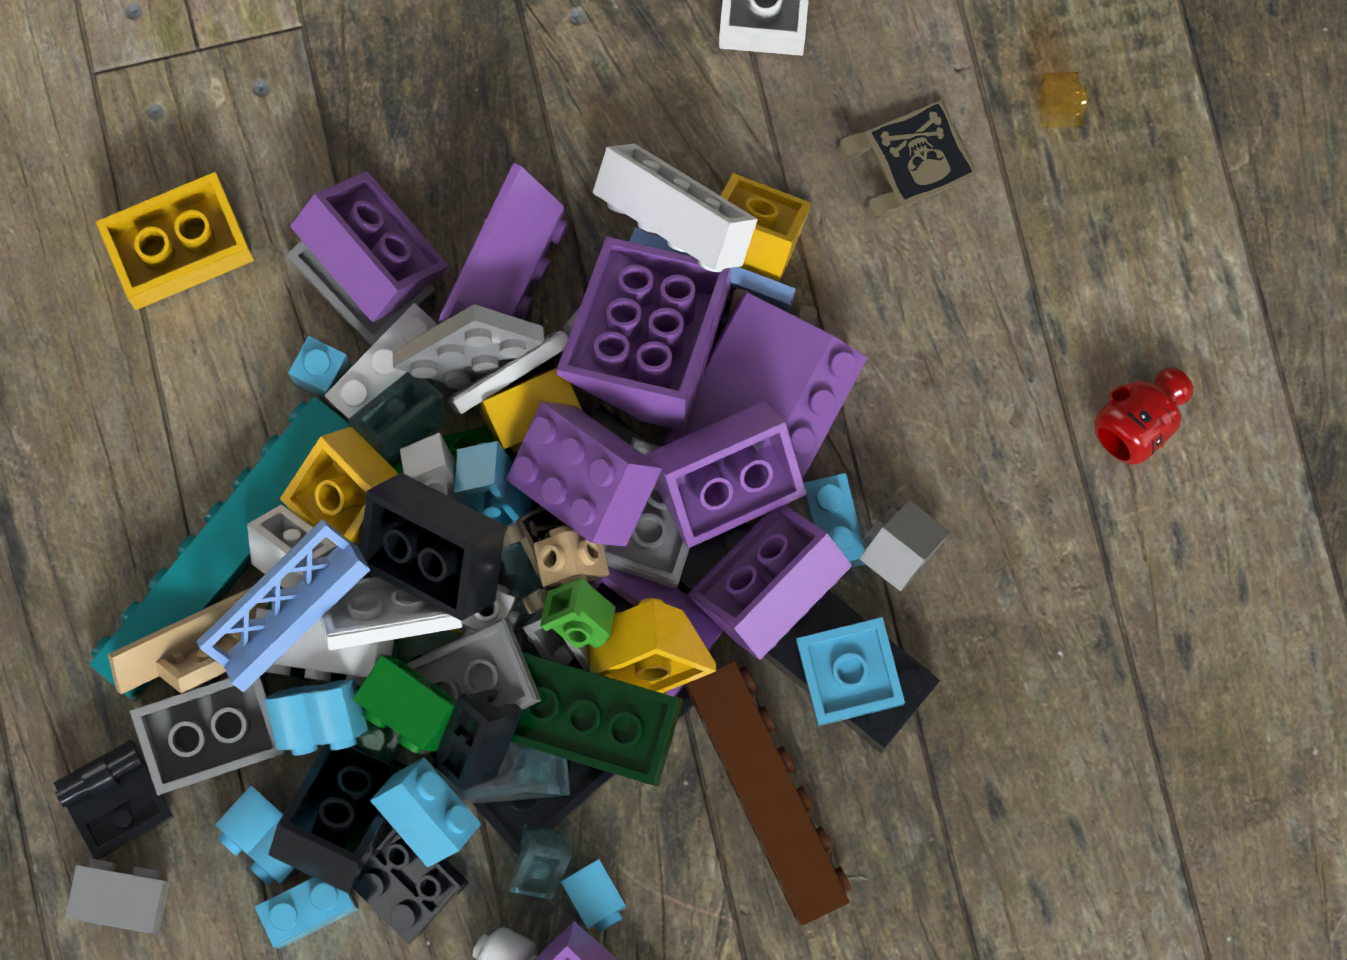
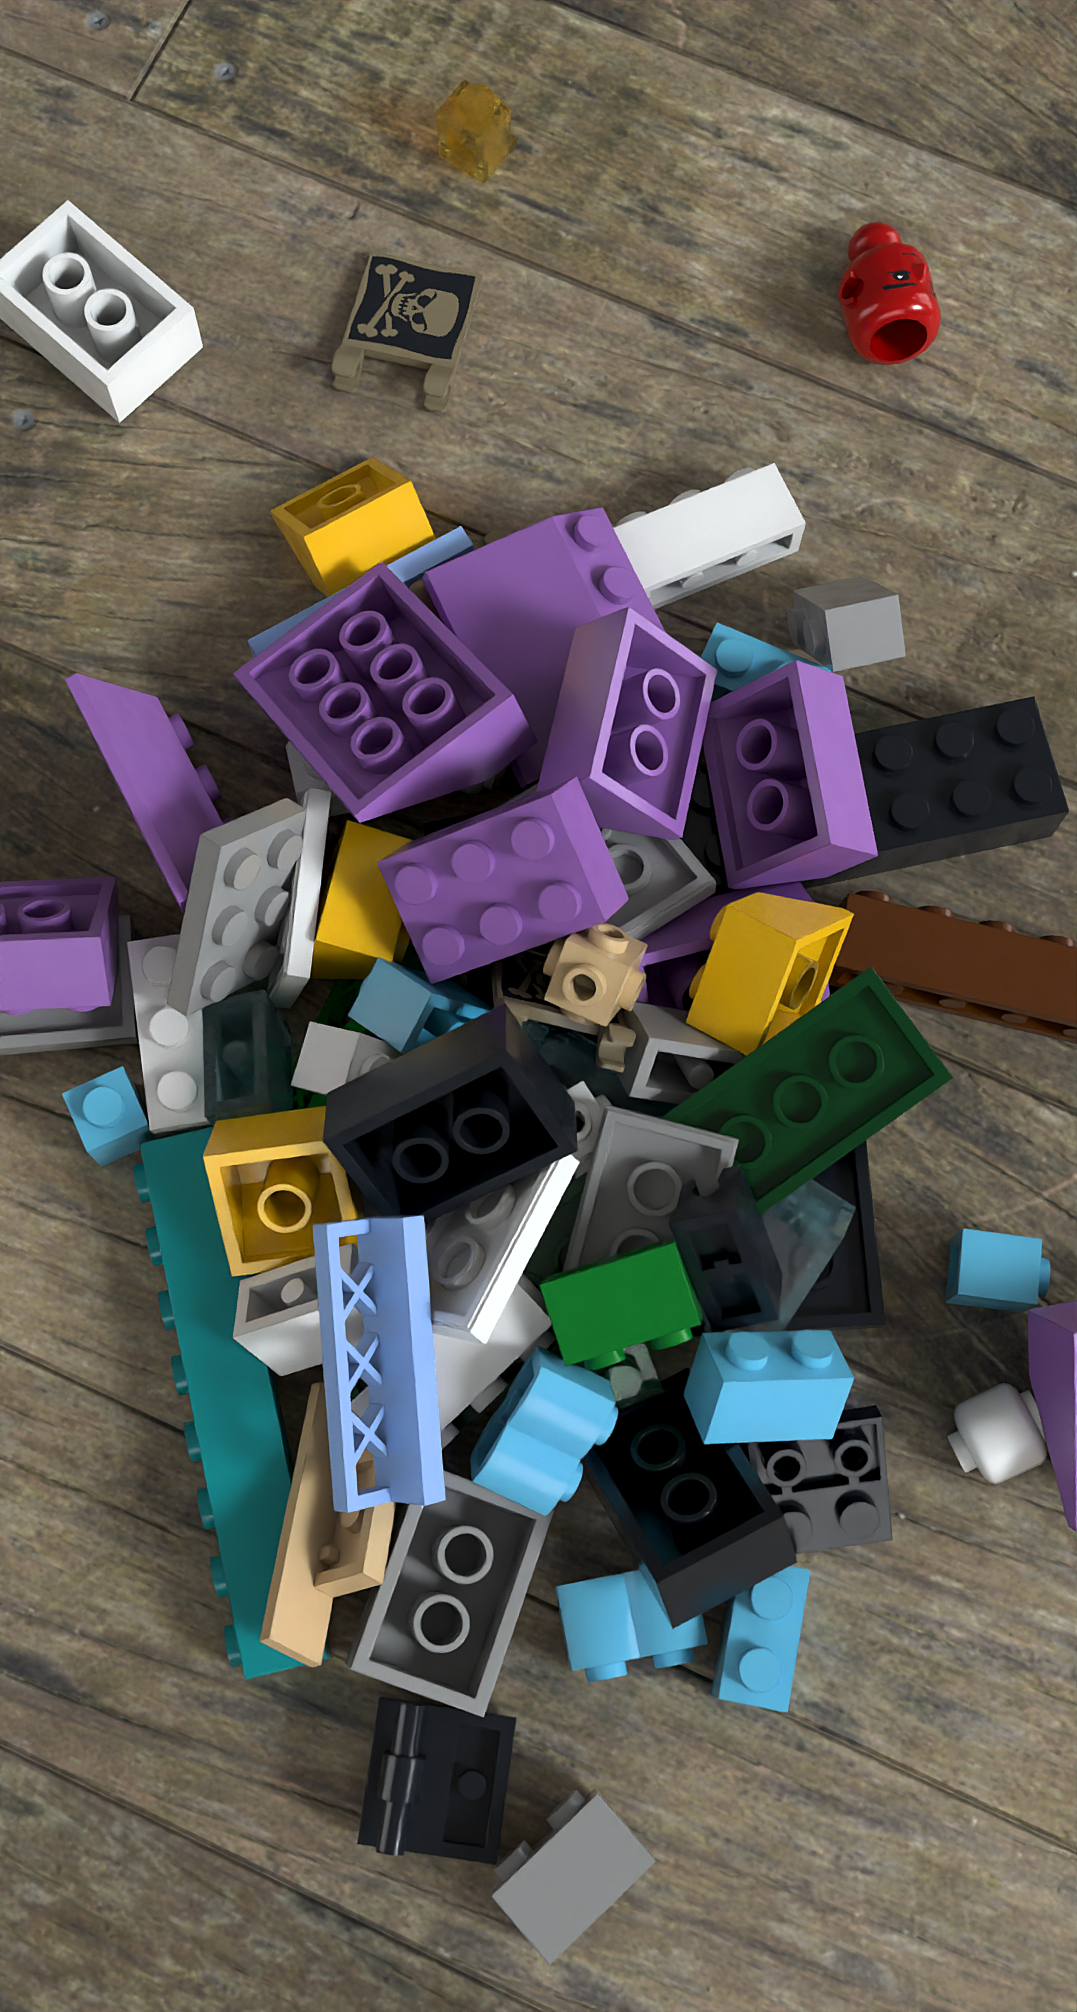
camera: 55 degrees left, 5 degrees down
(541, 862) = (919, 1296): clear light blue slope -> none
(578, 614) = (693, 1010): bright green brick -> none
(674, 207) = (264, 572): white brick -> none
(850, 671) = (962, 773): medium azure plate -> none
(904, 426) = (712, 534): none -> white brick

